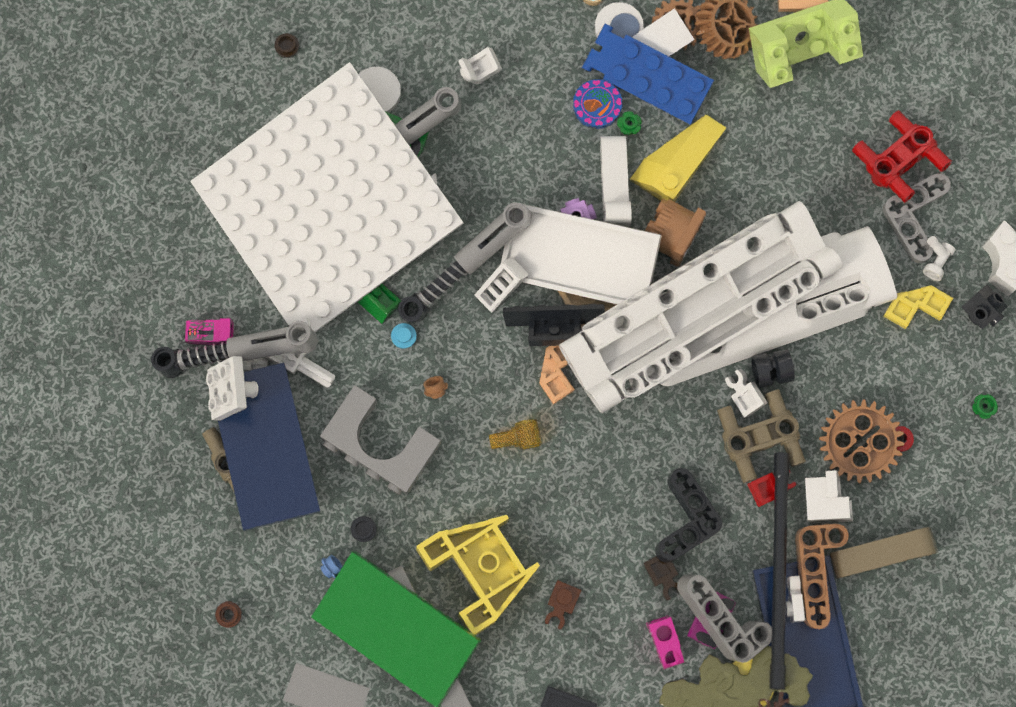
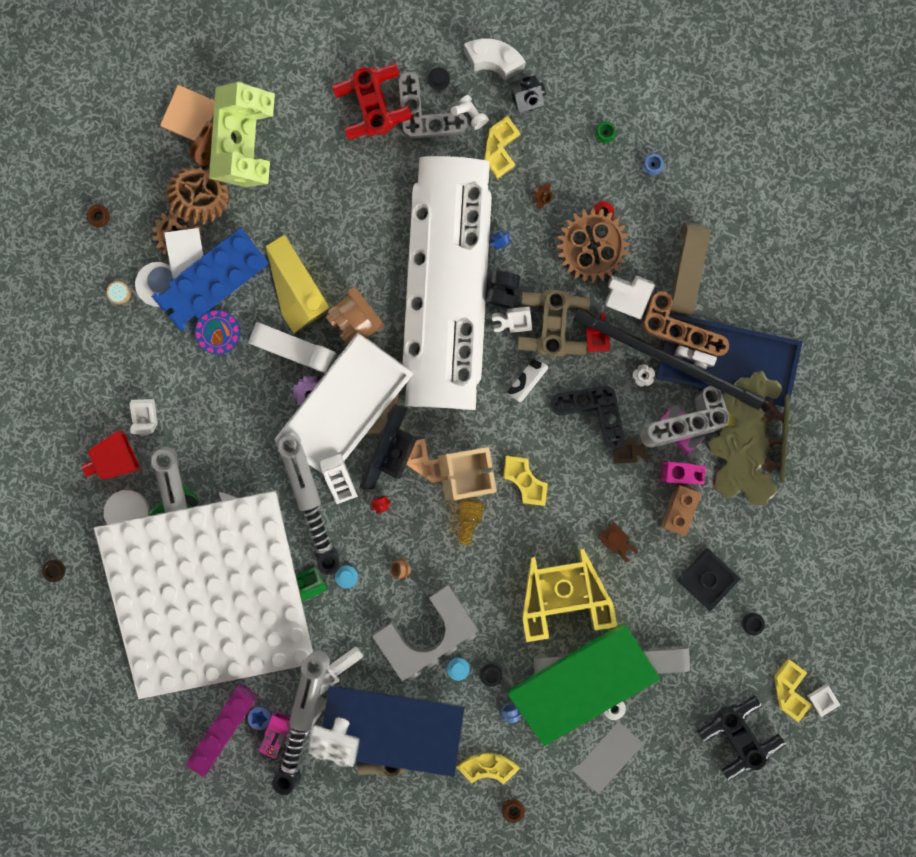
camera: 70 degrees left, 10 degrees up
(209, 277) = (221, 730): none -> magenta arch
(220, 308) = (259, 717): none -> medium blue tile
(265, 567) = (487, 765): none -> light yellow tile
(355, 491) = (458, 669): none -> medium azure plate
(376, 682) = (617, 715): none -> white plate
(425, 53) = (111, 458): none -> red torso
(493, 338) = (380, 504): none -> red plate
(564, 409) = (465, 475): none -> tan piece
(589, 467) = (518, 471): none -> light yellow tile
(625, 654) = (680, 510): none -> medium nougat brick
(629, 129) = (252, 312): green plate -> none
(689, 436) = (527, 380): none -> white slope
(699, 307) = (433, 326): white panel -> none
(747, 562) = (643, 369): none -> white plate
(774, 9) = (201, 148): none -> dark orange leg
(822, 344) = (500, 239): none -> blue plate
(888, 368) = (542, 195): none -> reddish brown plate
(956, 213) = (438, 79): none -> black plate
(977, 463) = (657, 160): none -> medium blue plate

